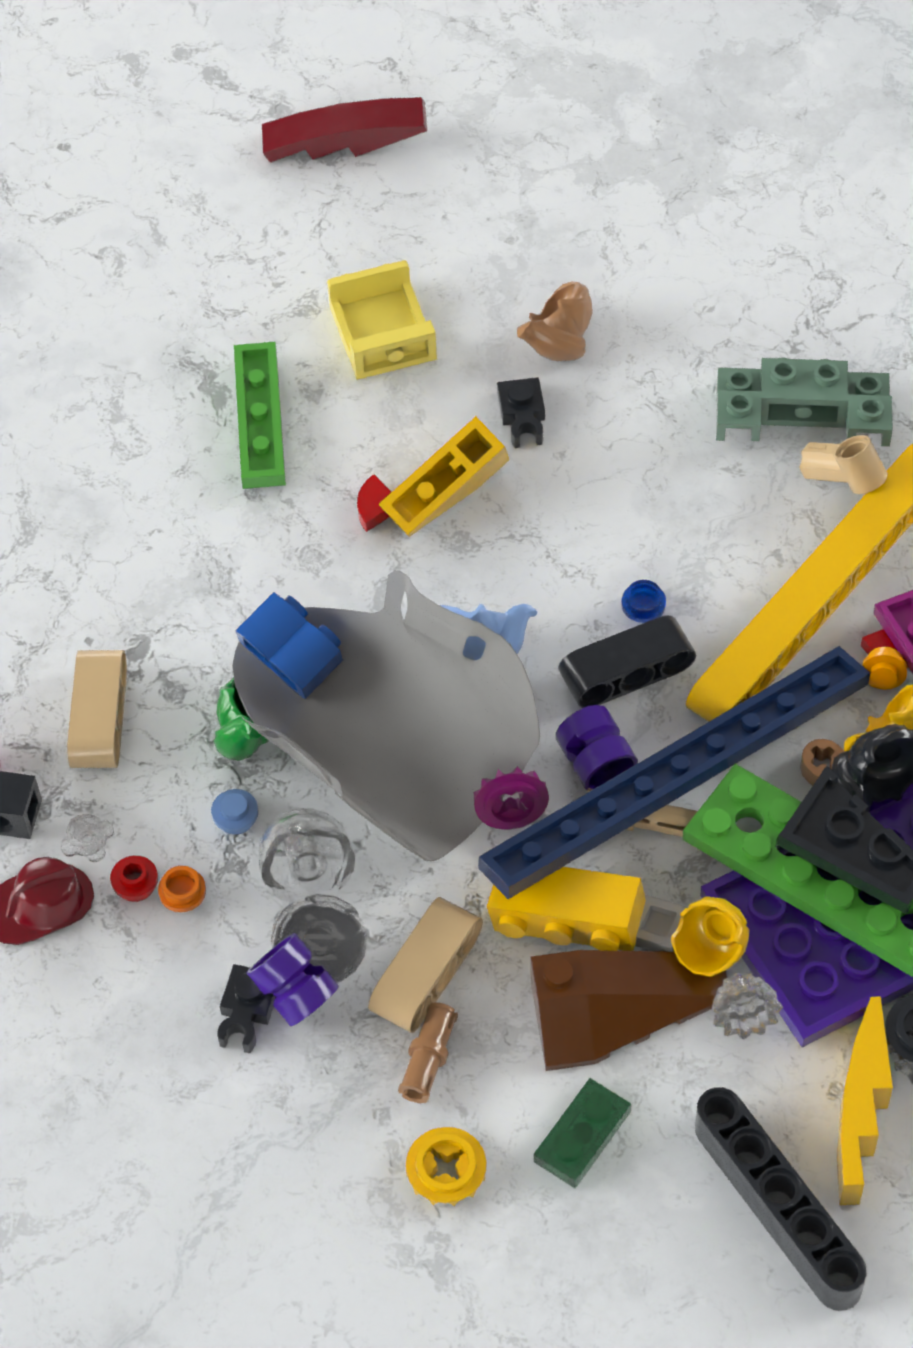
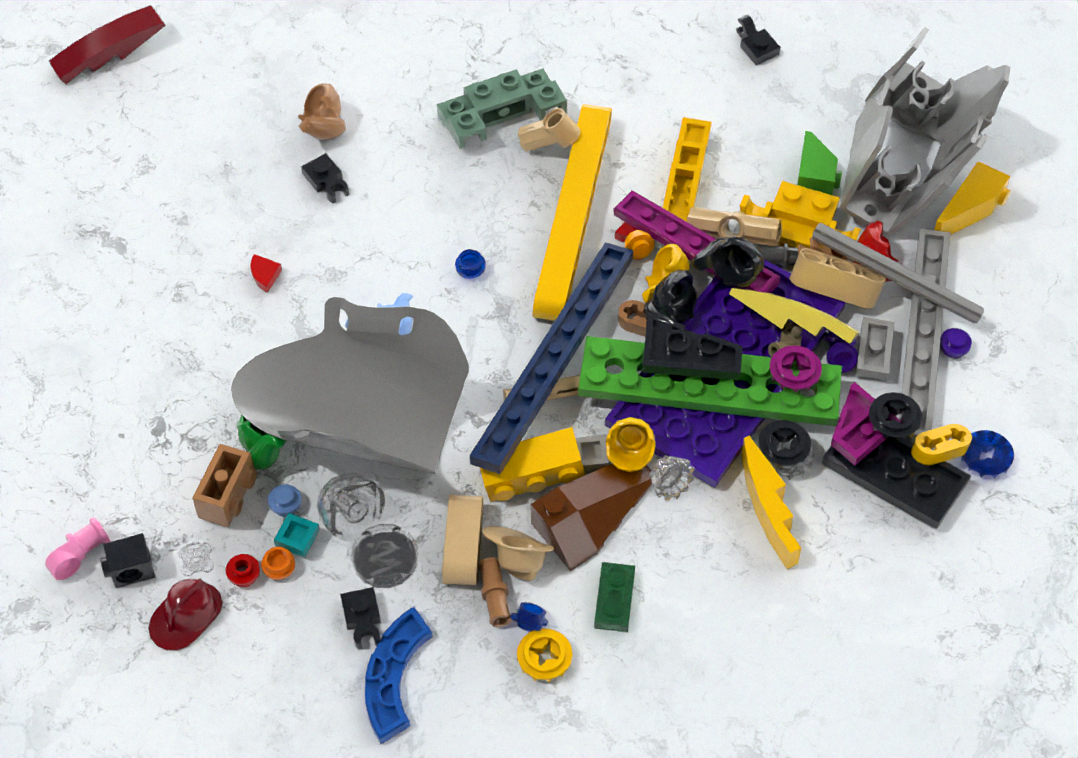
camera: 30 degrees left, 0 degrees up
(97, 709) = (156, 474): tan beam -> none
(166, 759) = (224, 485): none -> medium nougat brick
(223, 863) = (296, 534): none -> teal plate
(234, 1094) = (386, 672): none -> blue tile
(259, 415) = (156, 246): bright green plate -> none
(290, 644) = (270, 377): blue brick -> none
(292, 979) = (385, 583): dark purple wheel -> none
(381, 320) = (202, 156): light yellow panel -> none
(446, 477) = (304, 236): yellow slope -> none
(454, 1107) = (530, 617): none -> clear blue plate
(486, 1010) = (518, 551): none -> tan piece
(511, 812) = (462, 425): magenta gear -> none
(594, 746) = (498, 366): dark purple wheel -> none
(627, 661) = (482, 303): black beam -> none
(784, 1220) = (759, 593): black beam -> none

